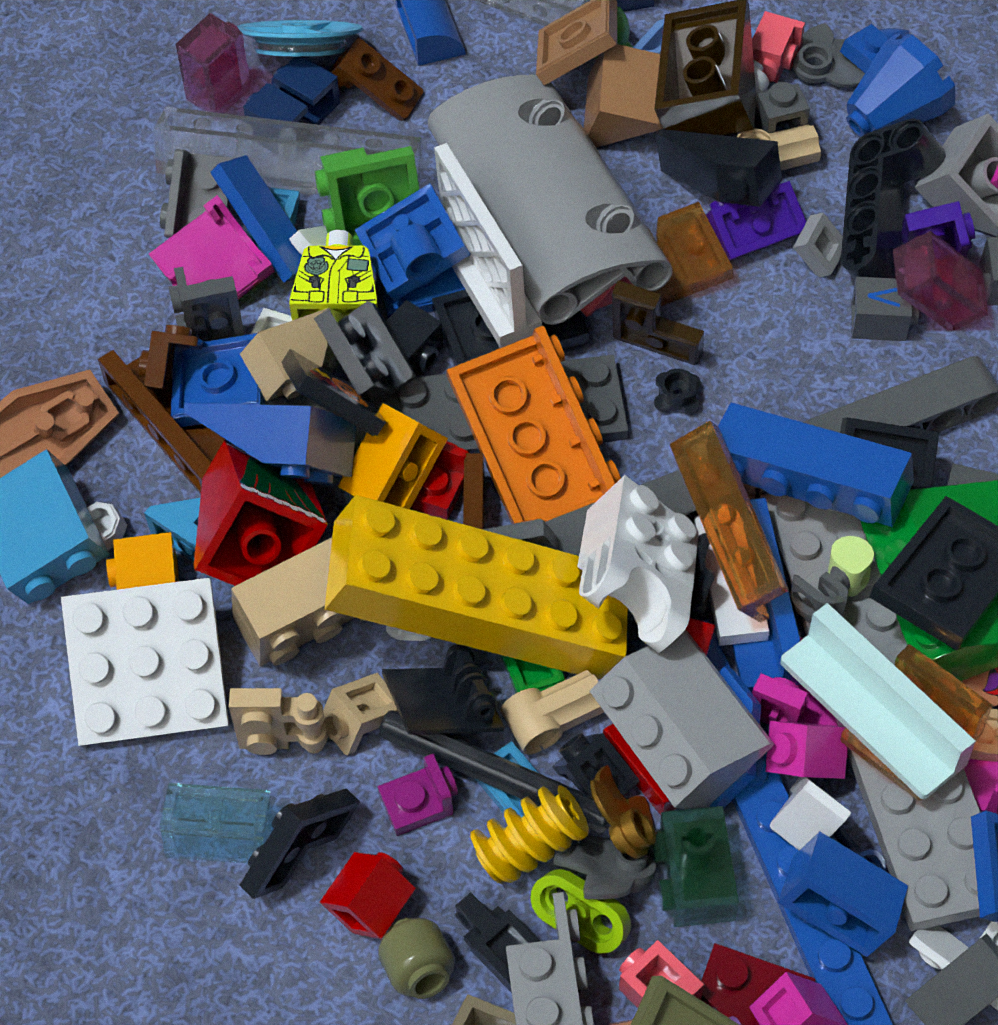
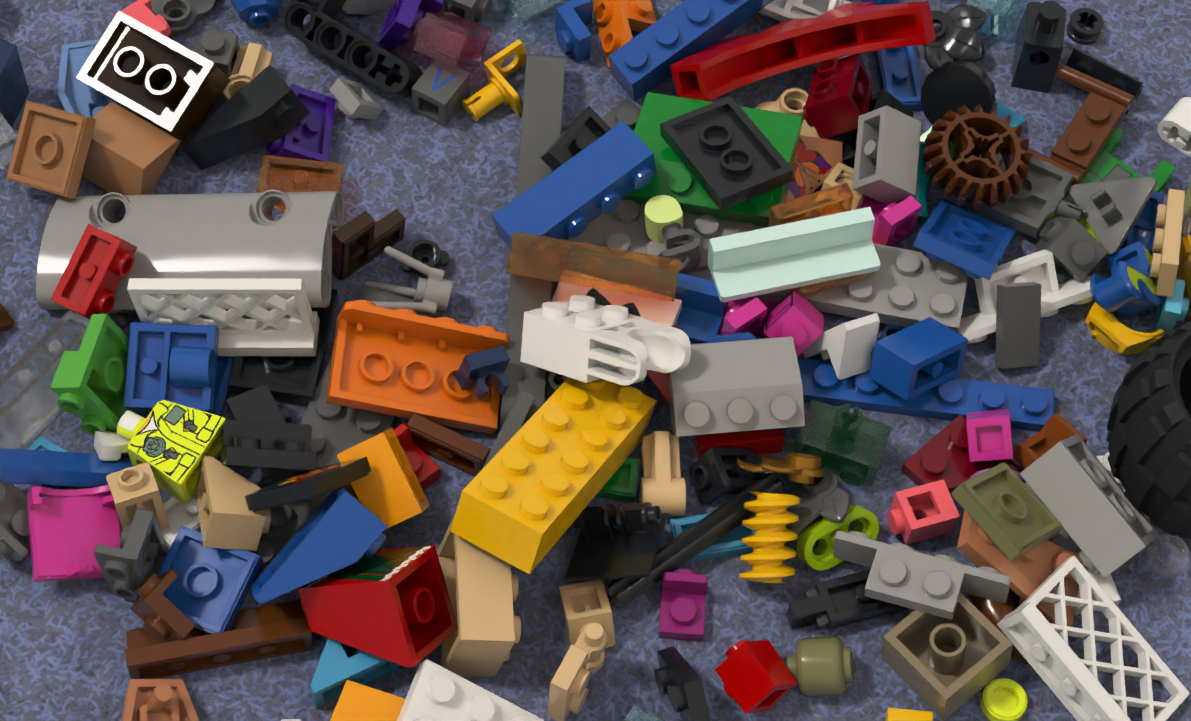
camera: 70 degrees left, 0 degrees up
(258, 284) = (136, 489): none -> tan bracket
(465, 129) = (94, 273): none -> red bracket
(563, 485) = (484, 368): none -> dark blue tile
(635, 408) = (430, 293): none -> light grey plant
(923, 355) = (498, 89): none -> yellow bracket

